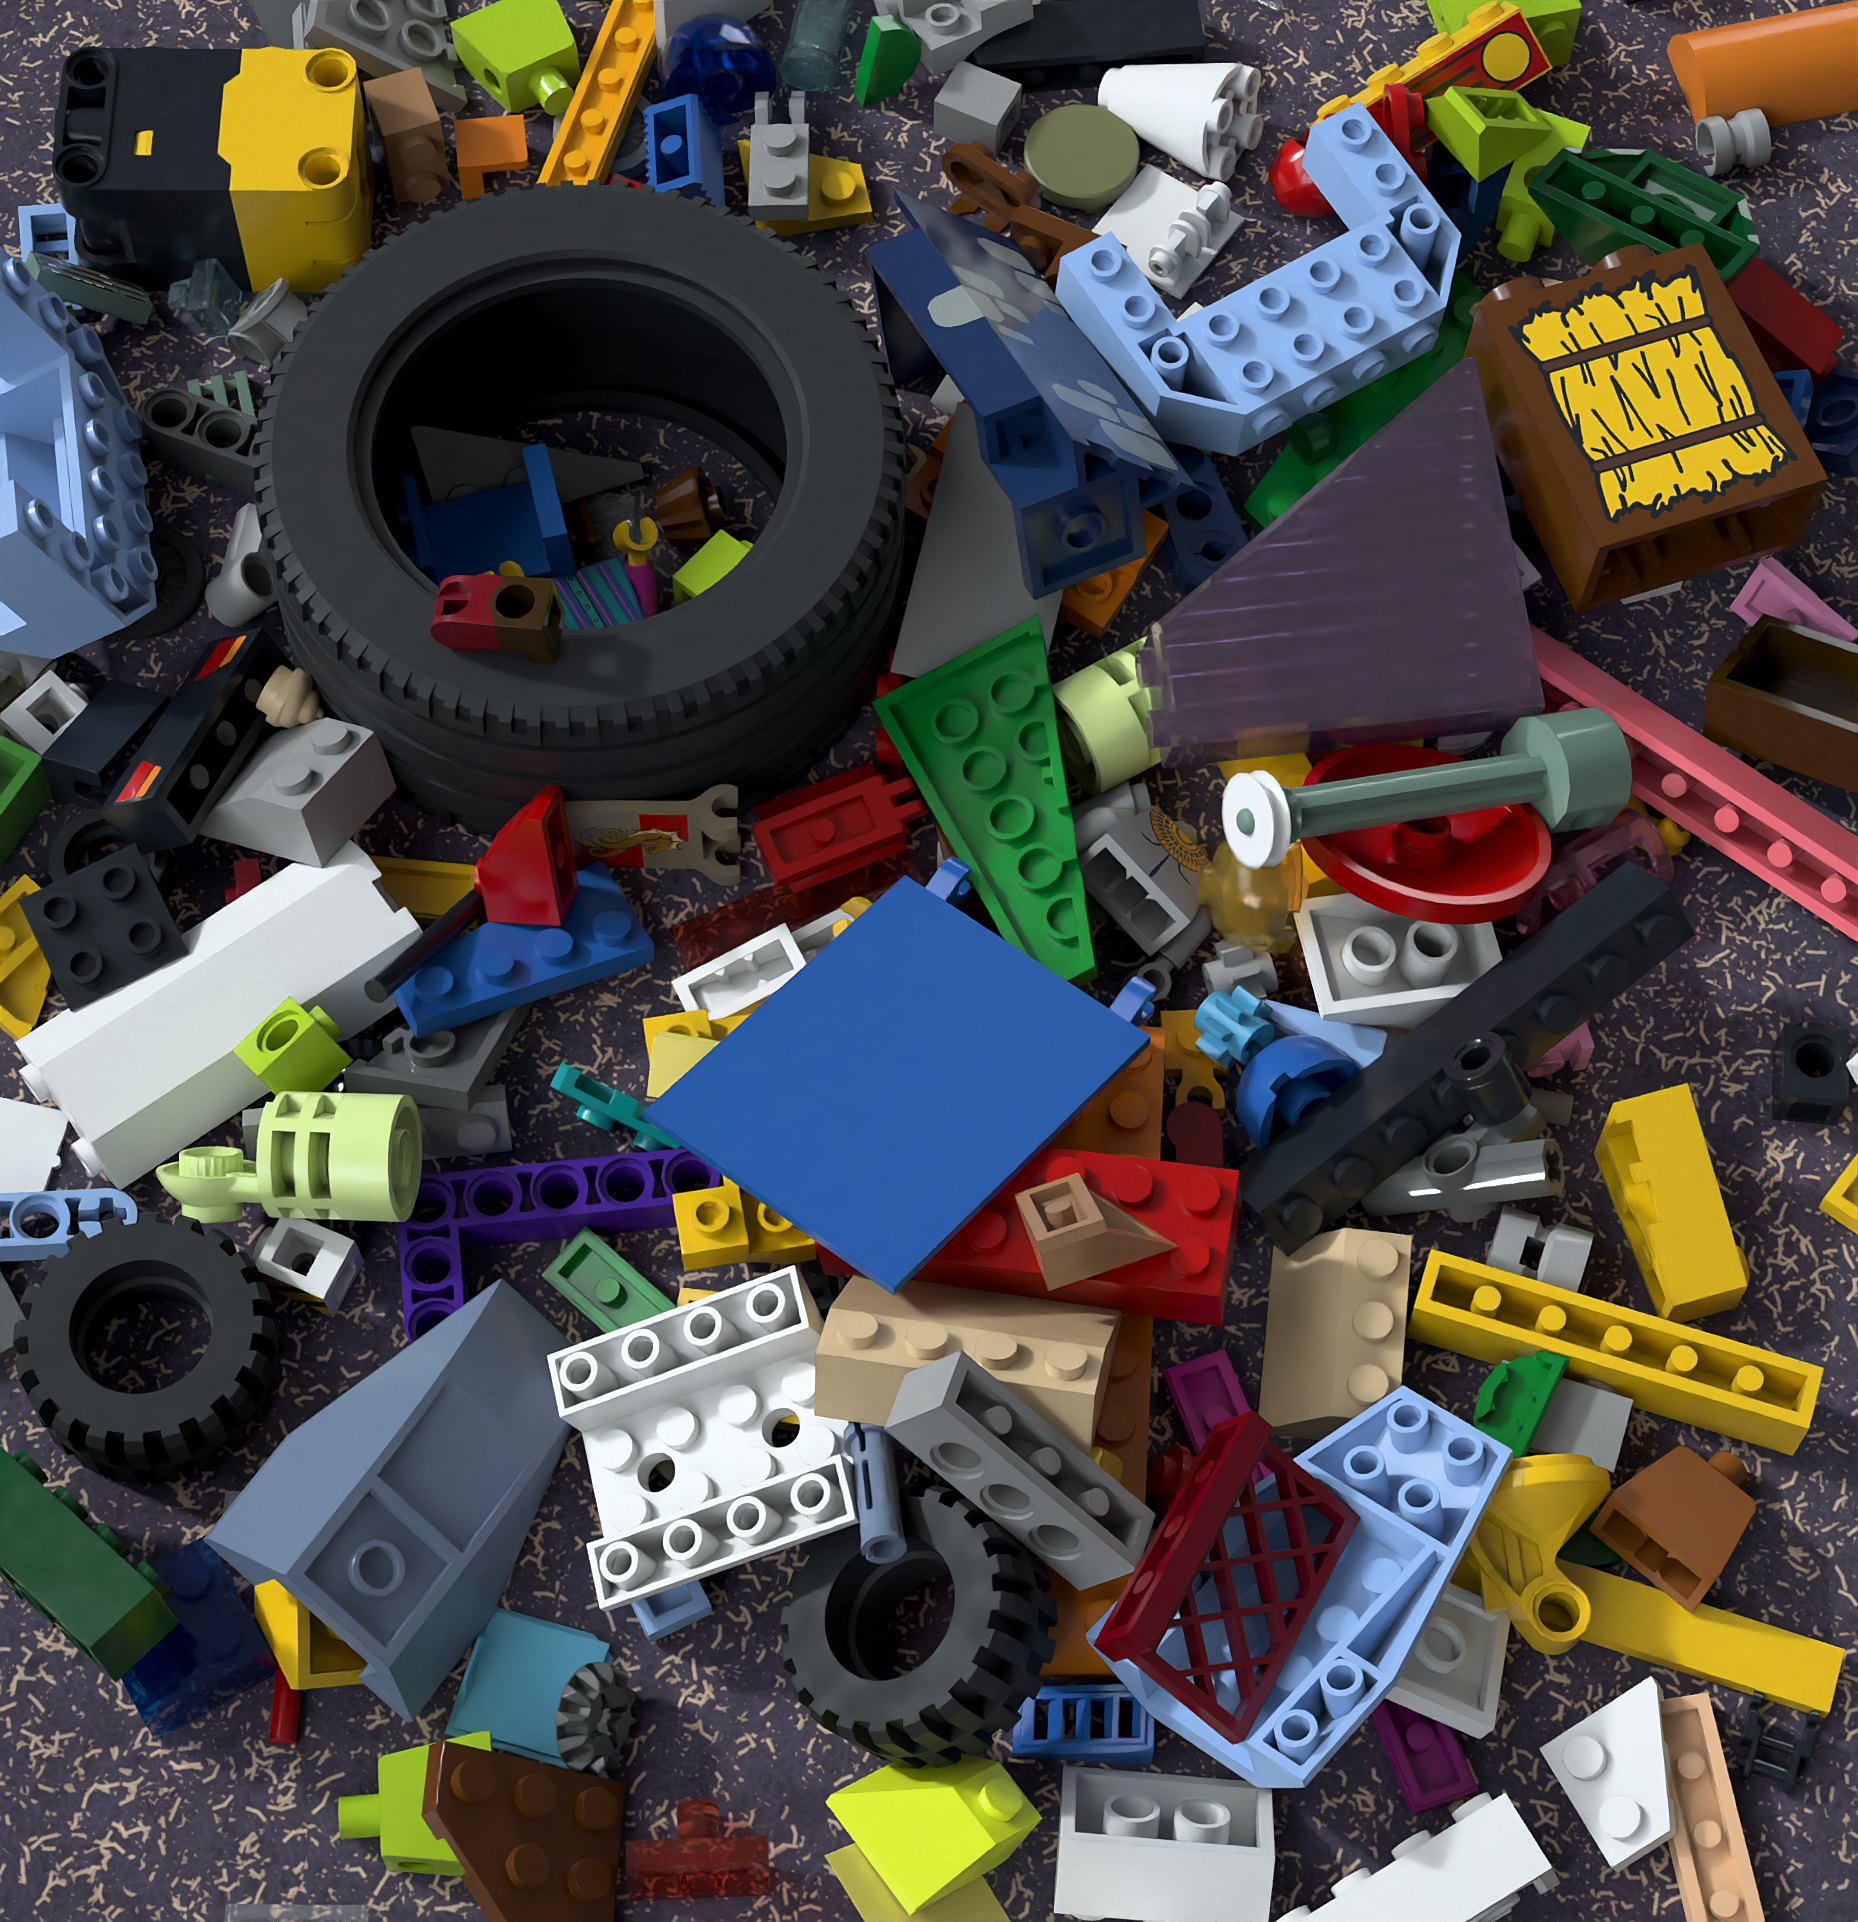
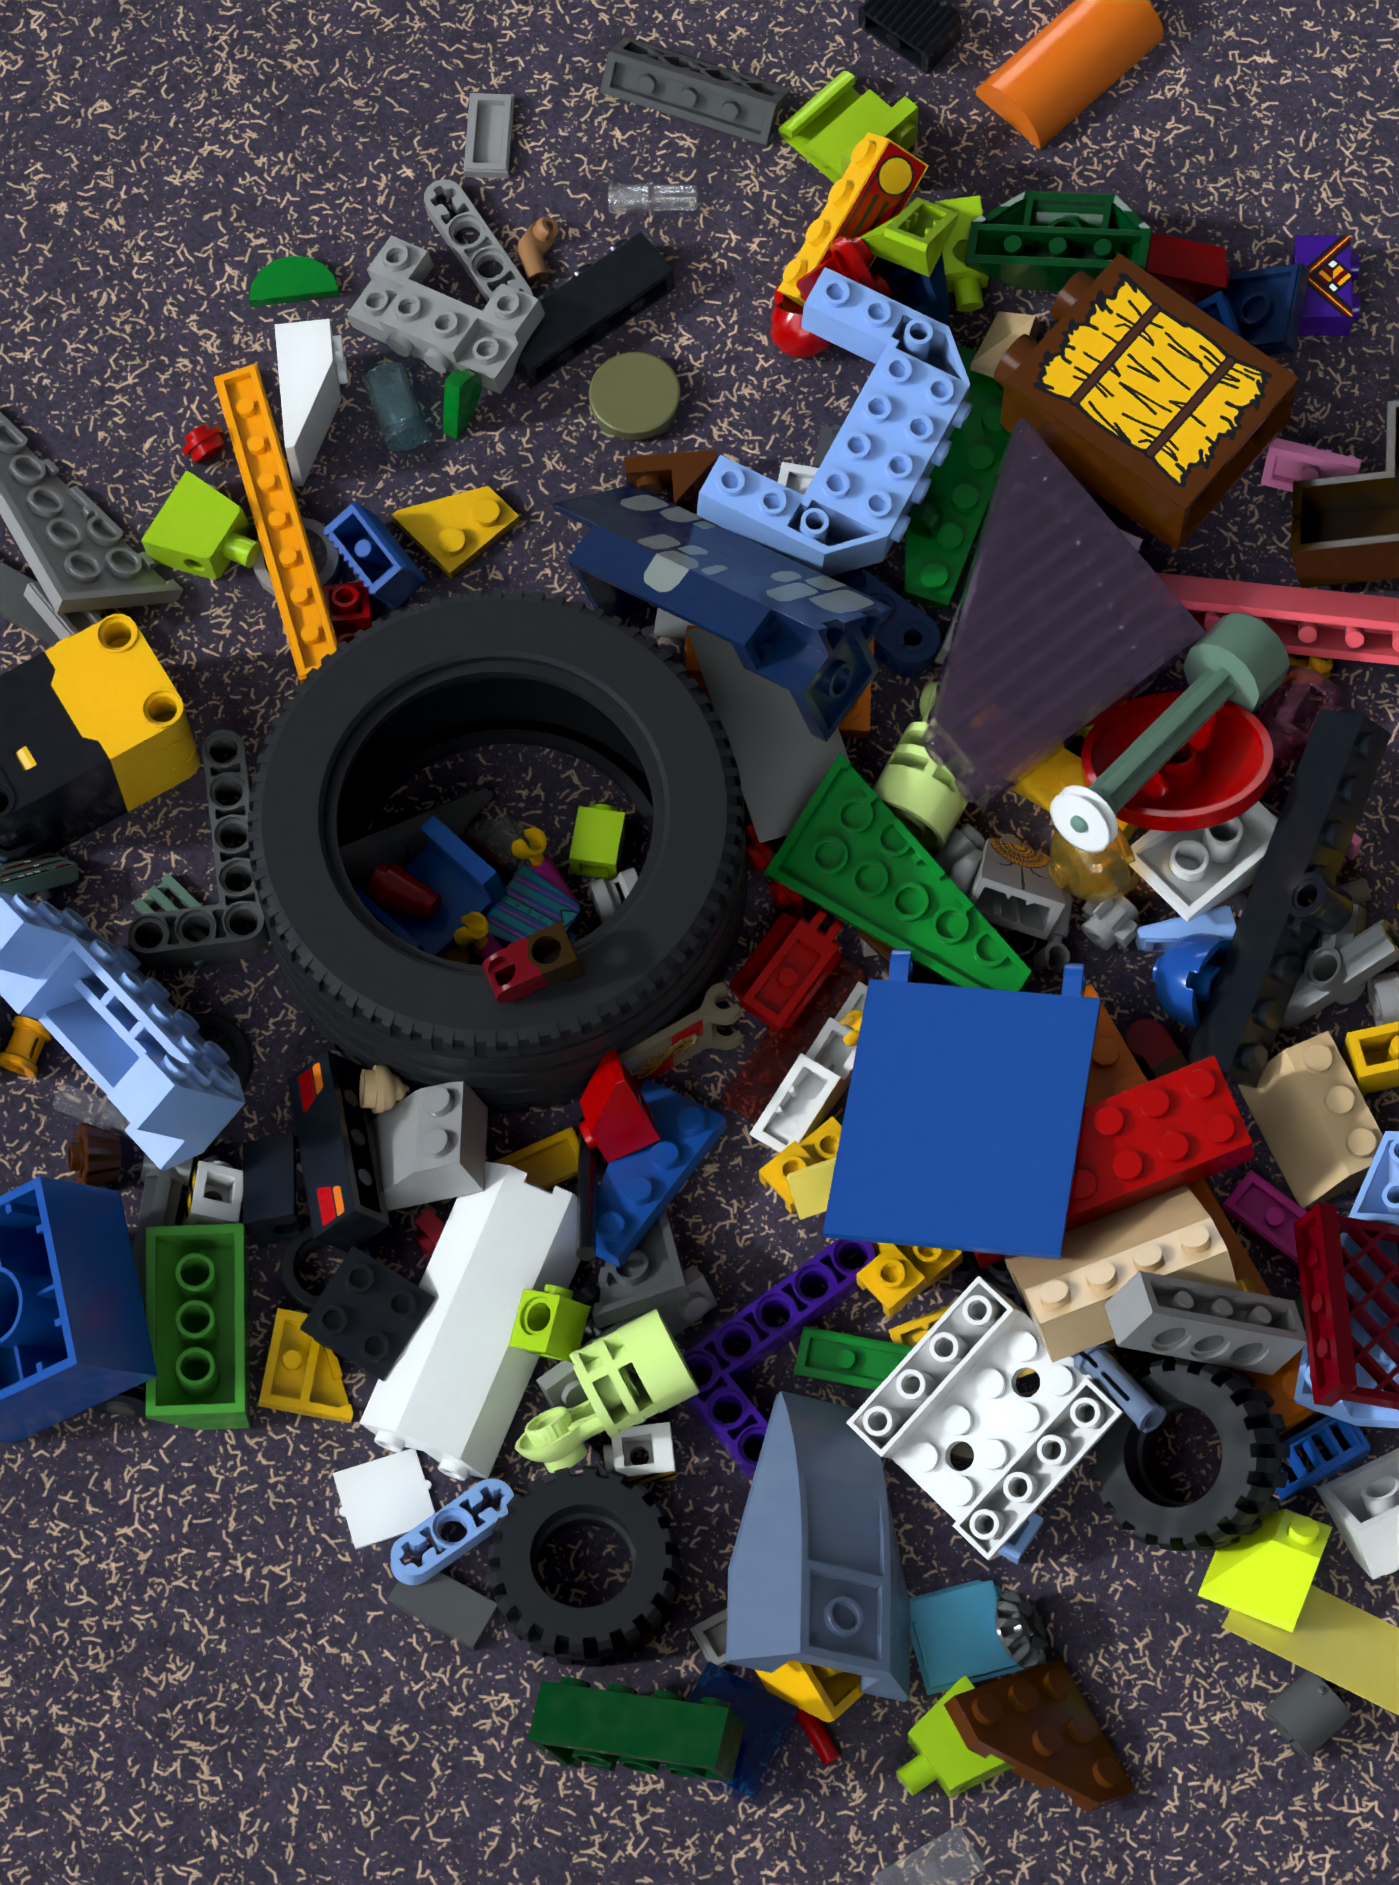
camera: 25 degrees left, 5 degrees up
(208, 299) = (108, 838): clear light blue tile -> none
(245, 579) = (280, 1016): light grey piece -> none
(267, 325) = (175, 831): light grey piece -> none
(407, 136) = (175, 640): medium nougat brick -> none
(459, 507) = (402, 892): none -> red cone
(488, 146) = (229, 618): orange panel -> none
(606, 1106) = (763, 1240): teal wing -> none
(691, 509) = (545, 802): reddish brown piece -> none
(698, 1860) = (1138, 1677): clear red tile -> none
(720, 63) = (347, 469): clear blue cylinder -> none
(779, 162) = (437, 516): light grey hinge -> none
(977, 107) = (542, 400): light grey panel -> none
(988, 185) = (588, 454): reddish brown bracket -> none
(1082, 1232) = (1143, 1151): medium nougat slope -> none
(1168, 1474) = (1276, 1269): red plate -> none
(1171, 227) = (725, 415): white hinge -> none
(1189, 111) = (688, 324): white cone -> none
(1189, 1062) = (1114, 987): light orange plate -> none
(1233, 1026) = (1131, 957): dark azure gear -> none
(1735, 141) = (1068, 140): light grey wheel -> none

